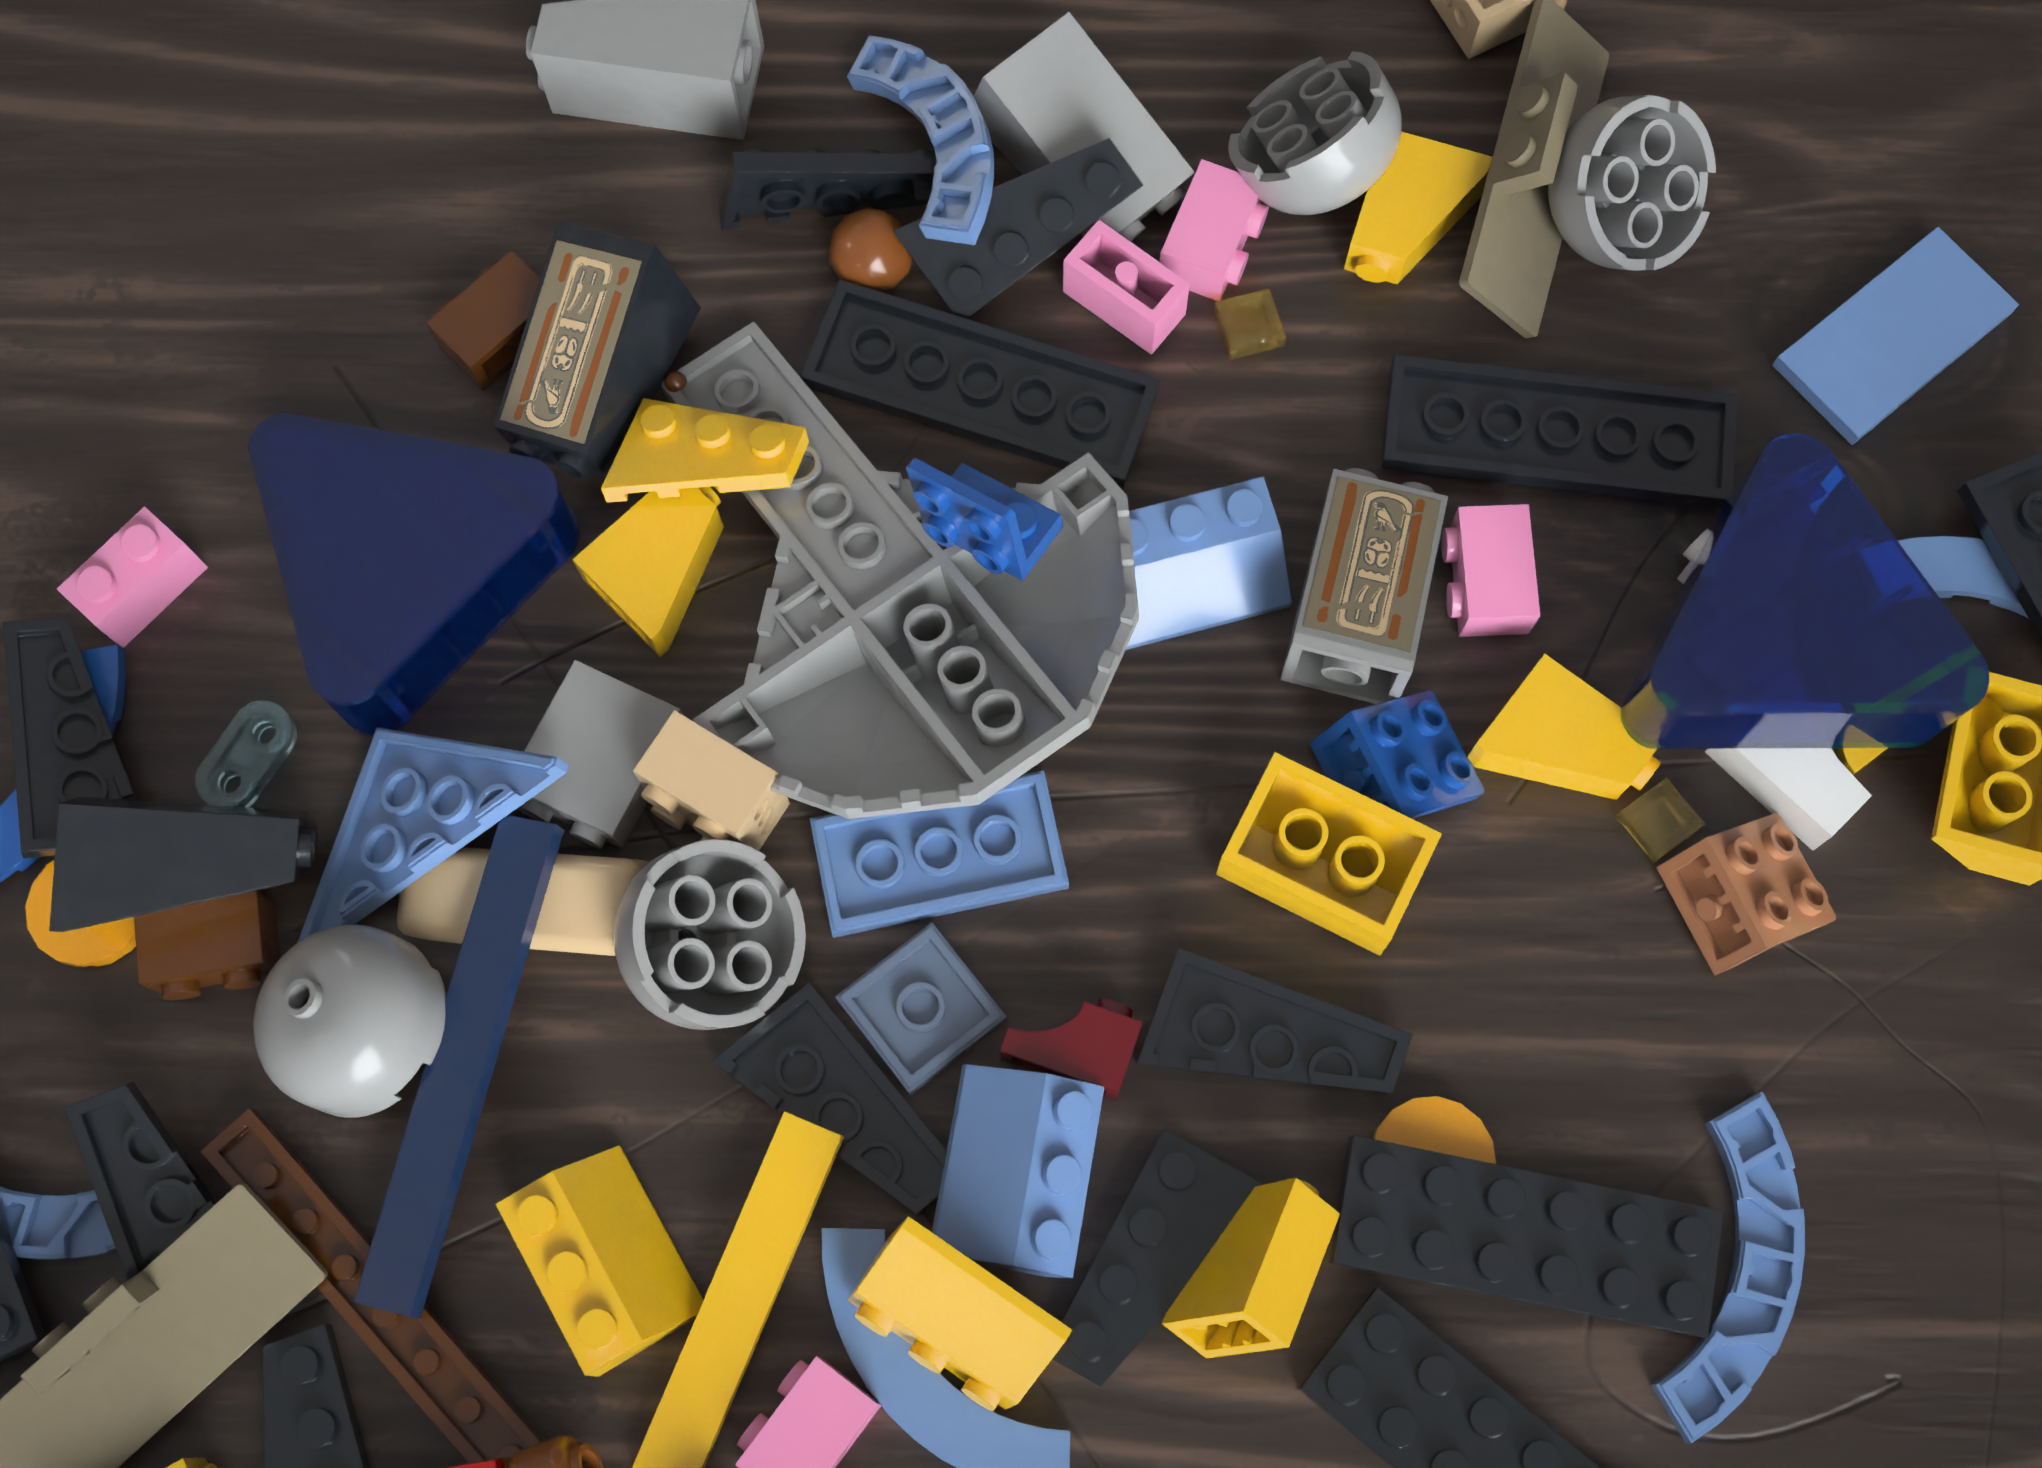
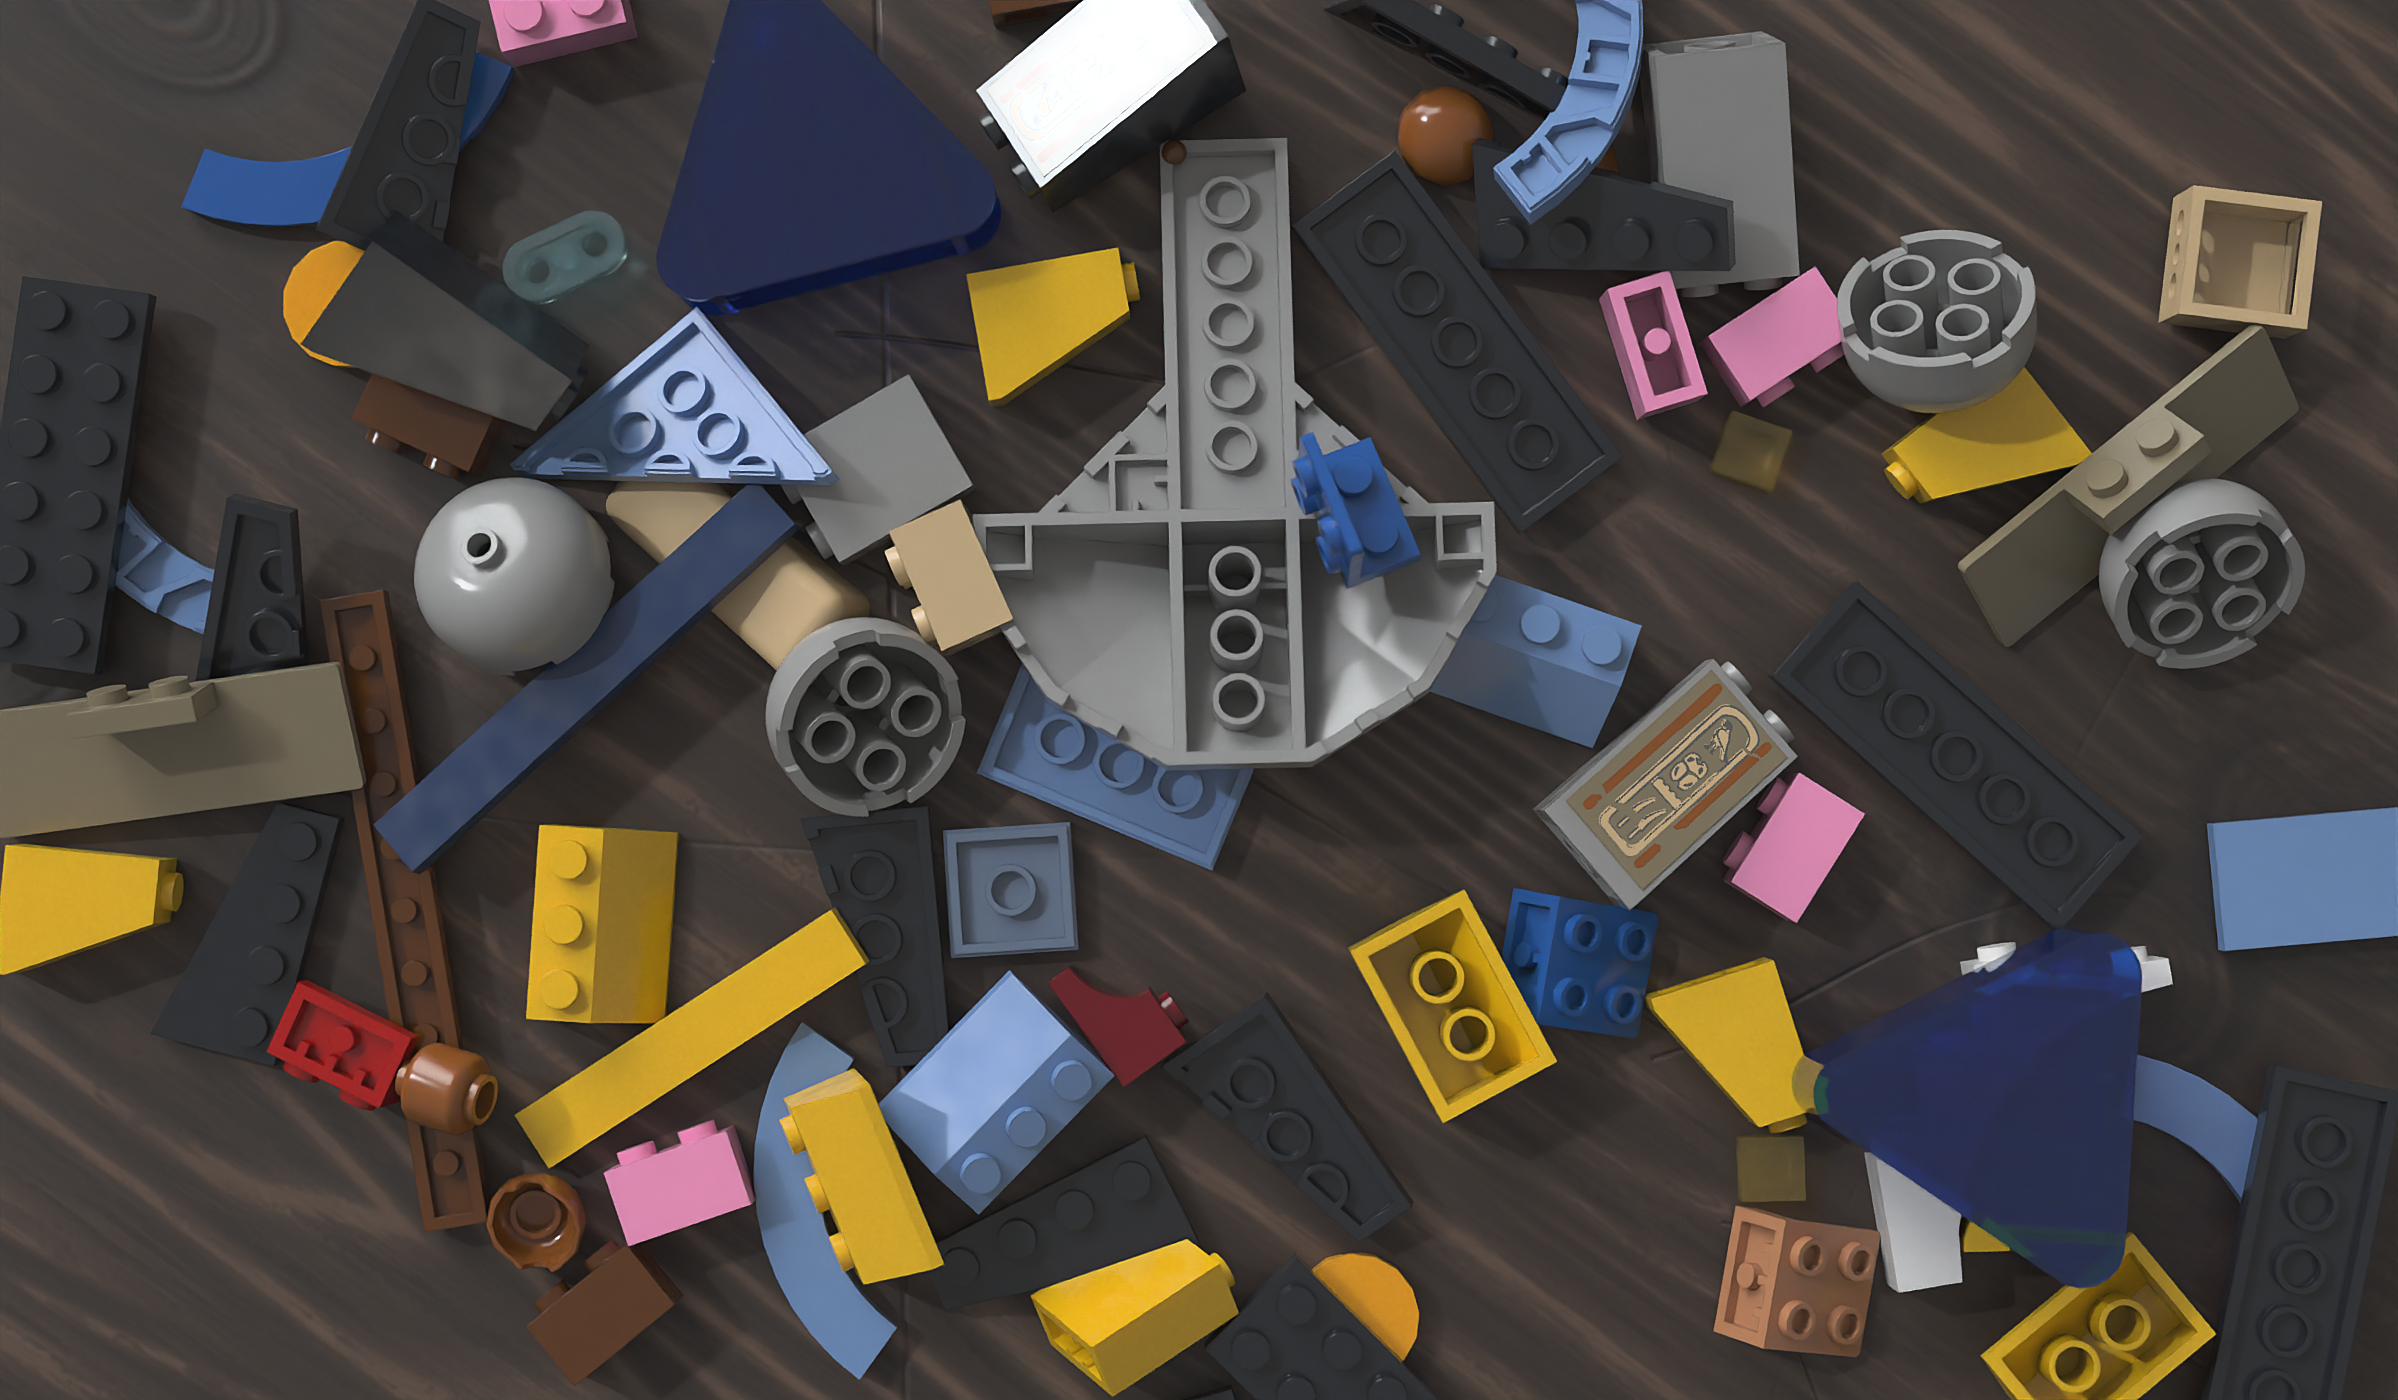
camera: 30 degrees right, 15 degrees up
(697, 447) = (1146, 246): yellow wing -> none

